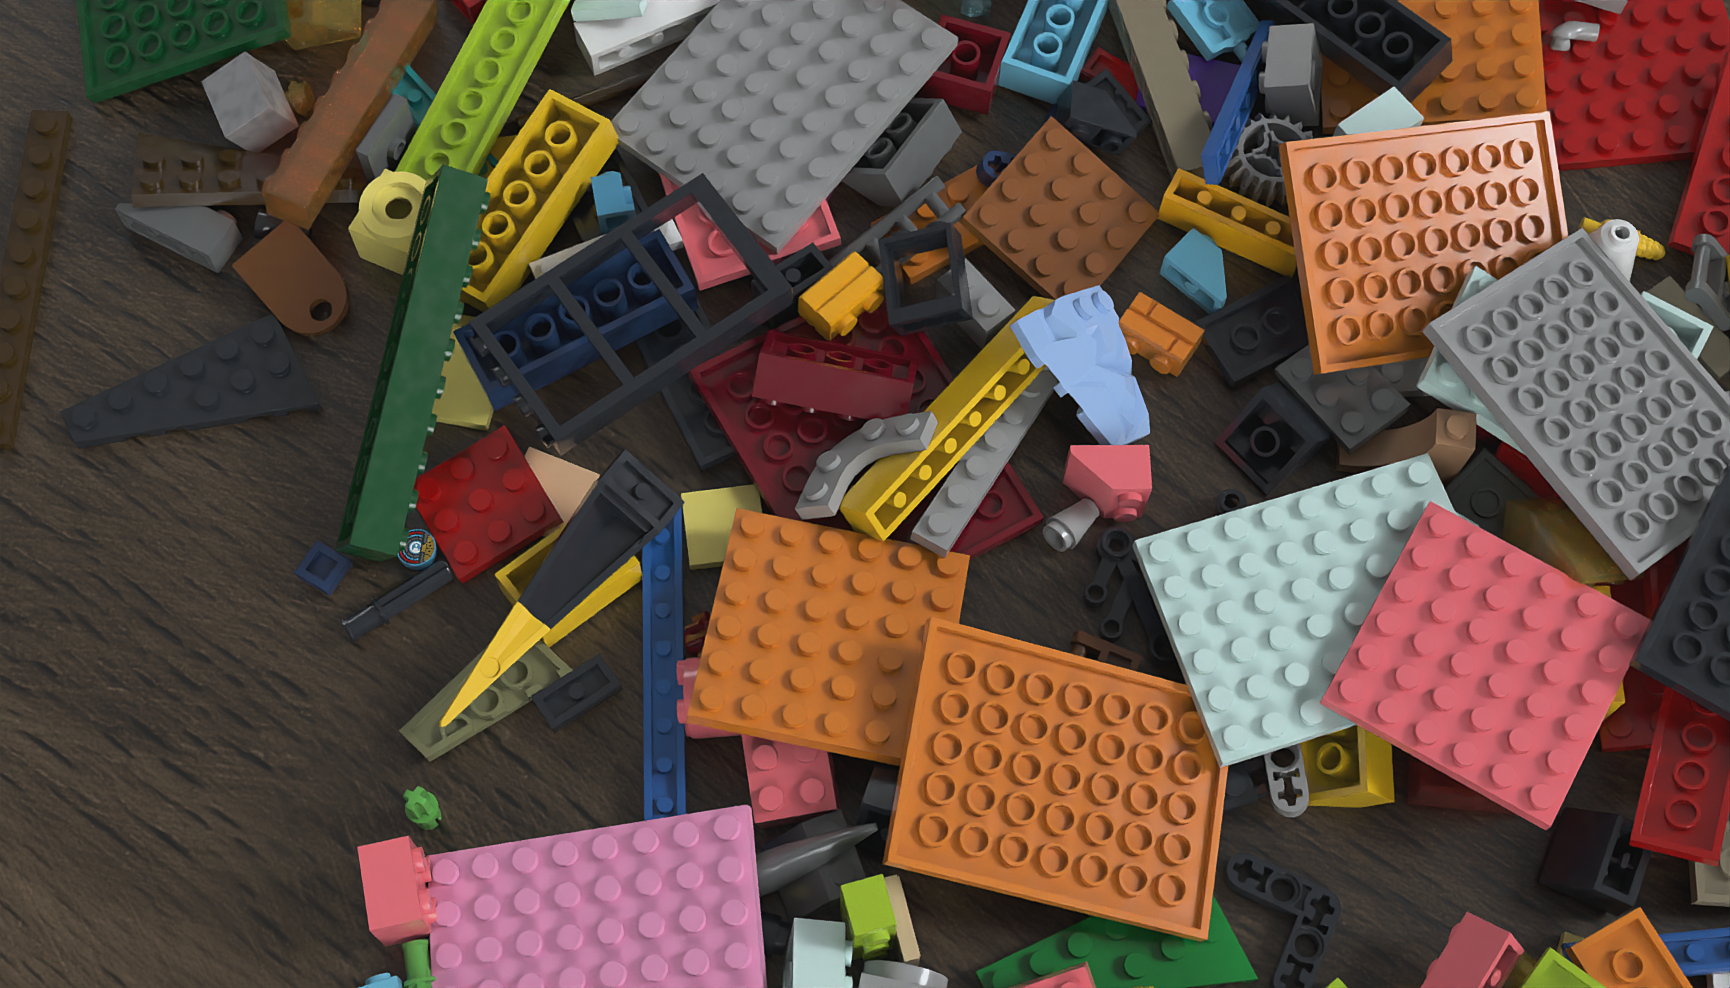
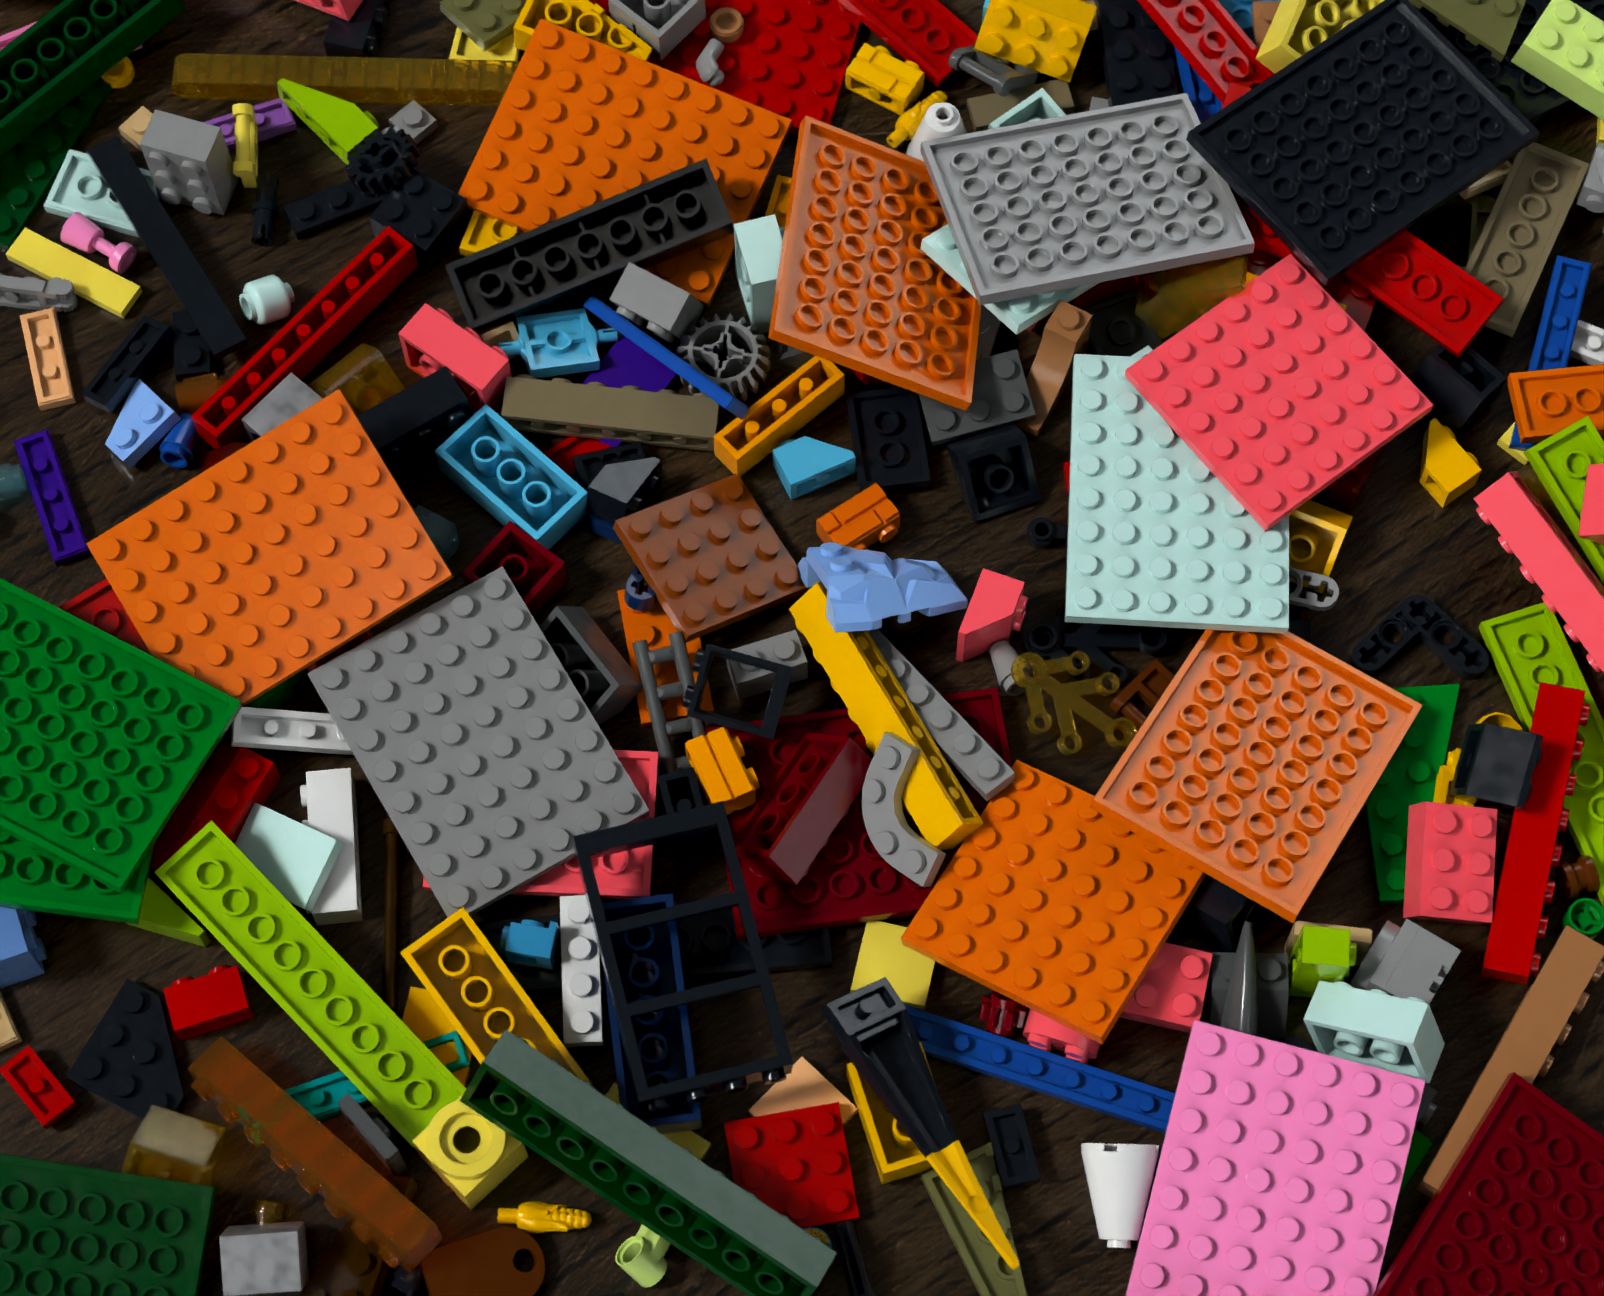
camera: 65 degrees left, 0 degrees up
(350, 403) = (643, 1257): none -> yellowish green piece
(368, 313) = (544, 1217): none -> yellow piece
(568, 802) = (1119, 1188): none -> white cone
(1060, 579) = (1068, 699): none -> clear yellow plant
(1502, 881) = (1445, 465): none -> yellow slope
(1622, 34) = (726, 25): none -> medium nougat tile
(1648, 191) = (884, 78): none -> yellow brick

